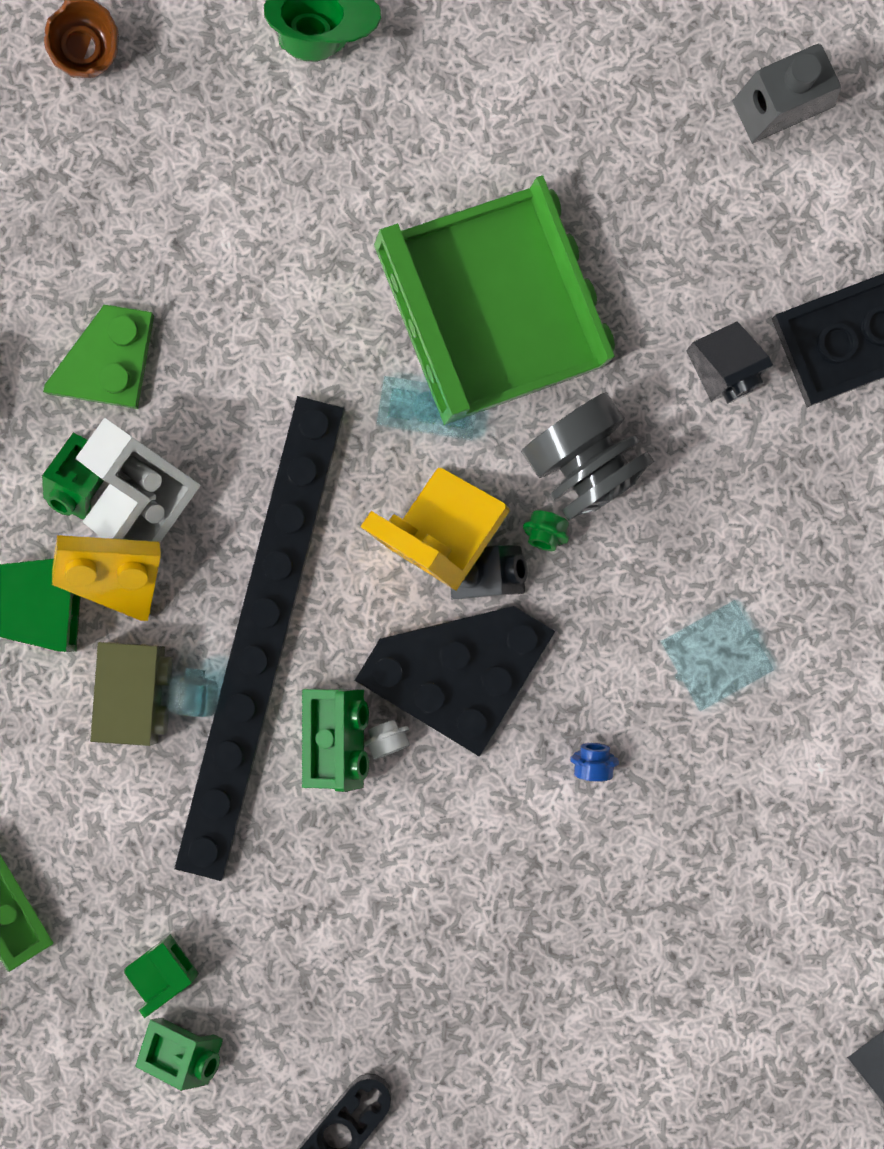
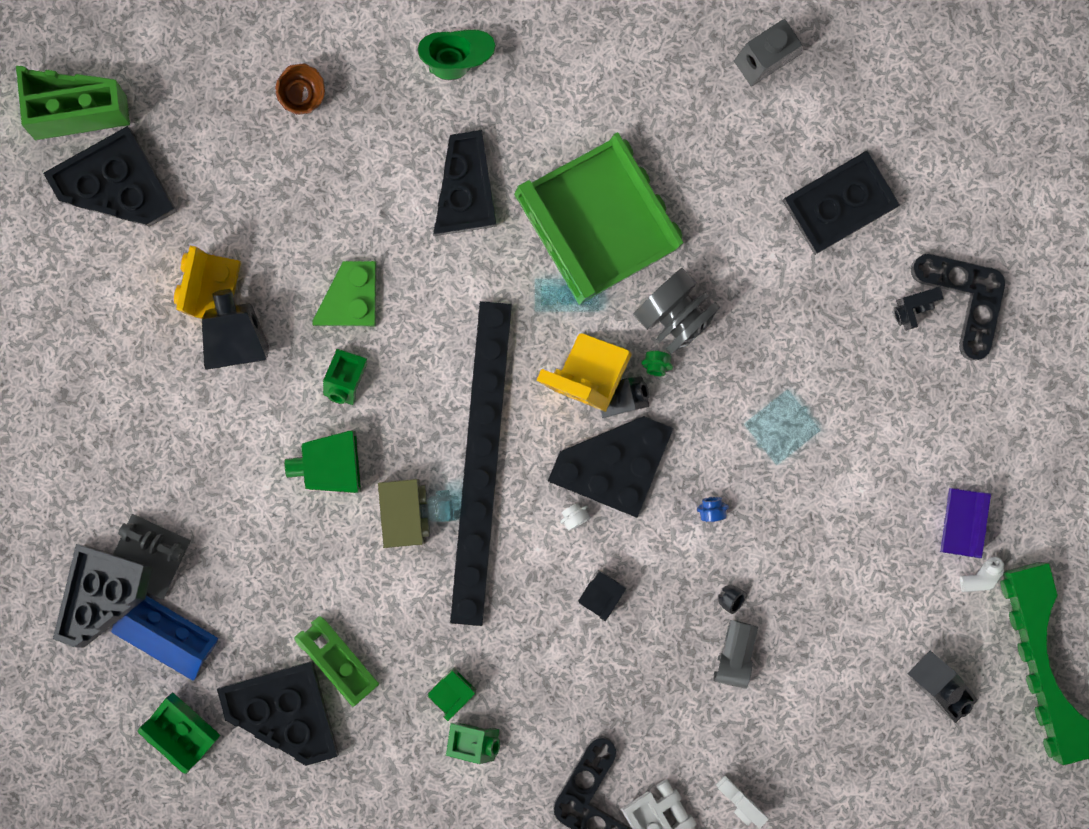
camera: 10 degrees left, 0 degrees up
(108, 572) = (378, 435): yellow wing -> none
(142, 491) = (390, 381): white brick -> none
(304, 229) = (466, 188): none -> black wing
(334, 739) = (541, 521): green bracket -> none
(408, 863) = (602, 595): none -> black panel
(592, 993) = (735, 659): none -> dark grey piece
(602, 900) = (732, 598): none -> black hinge
(729, 363) = (758, 235): black slope -> none

